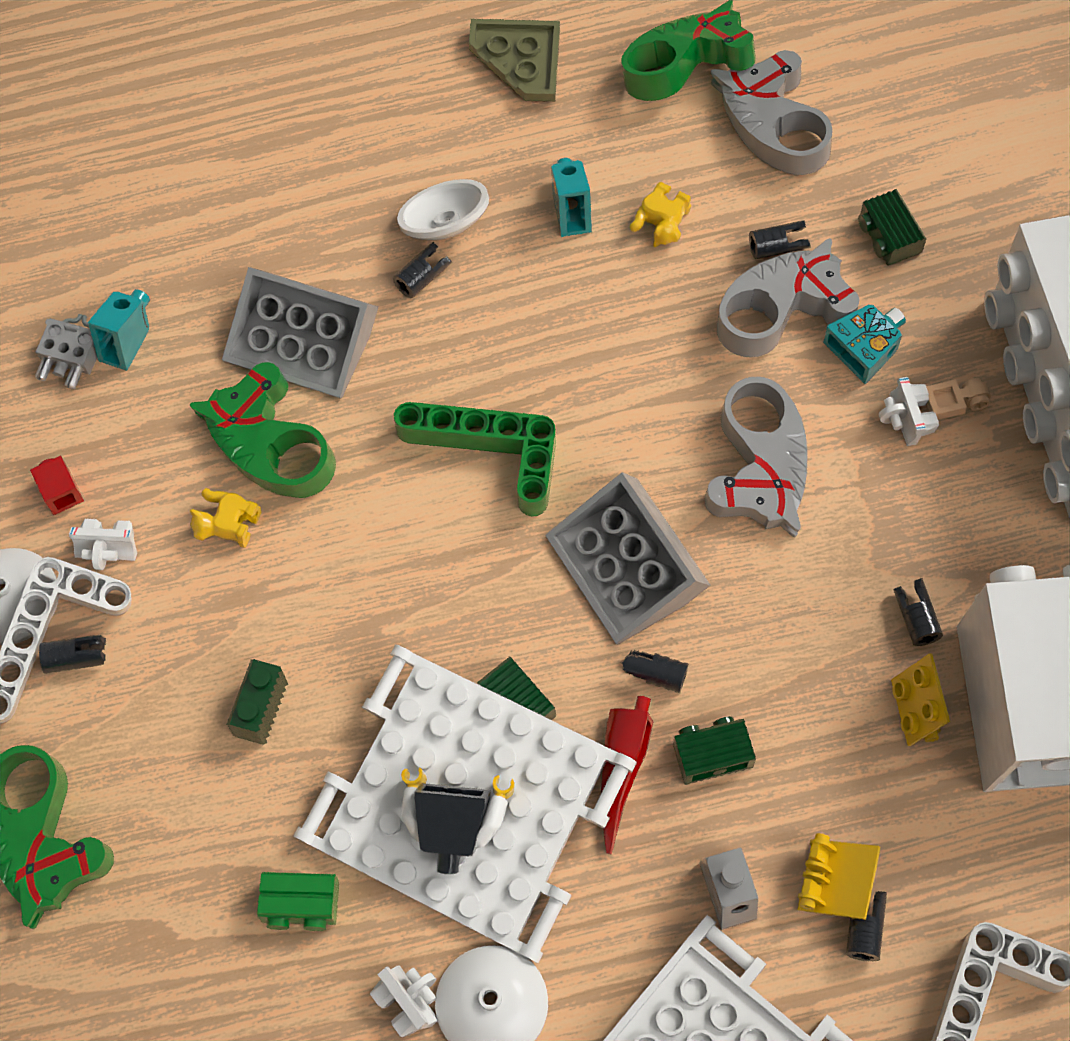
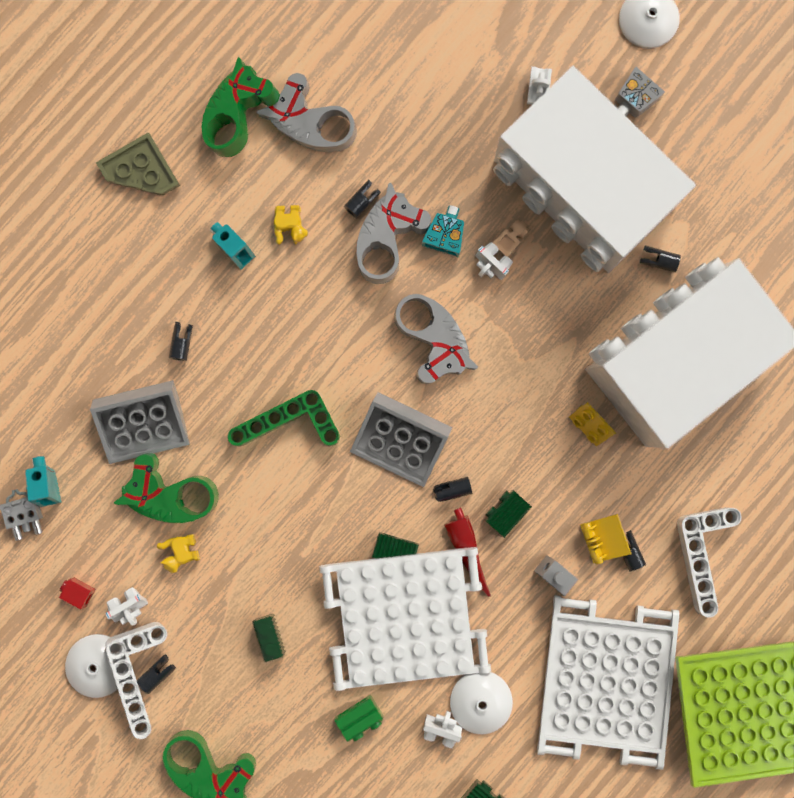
camera: 40 degrees left, 20 degrees up
(443, 209) = (168, 300): white dish -> none
(452, 818) = (409, 638): black torso -> none
(891, 227) = (417, 154): dark green brick -> none
(920, 616) = (566, 377): black hinge -> none

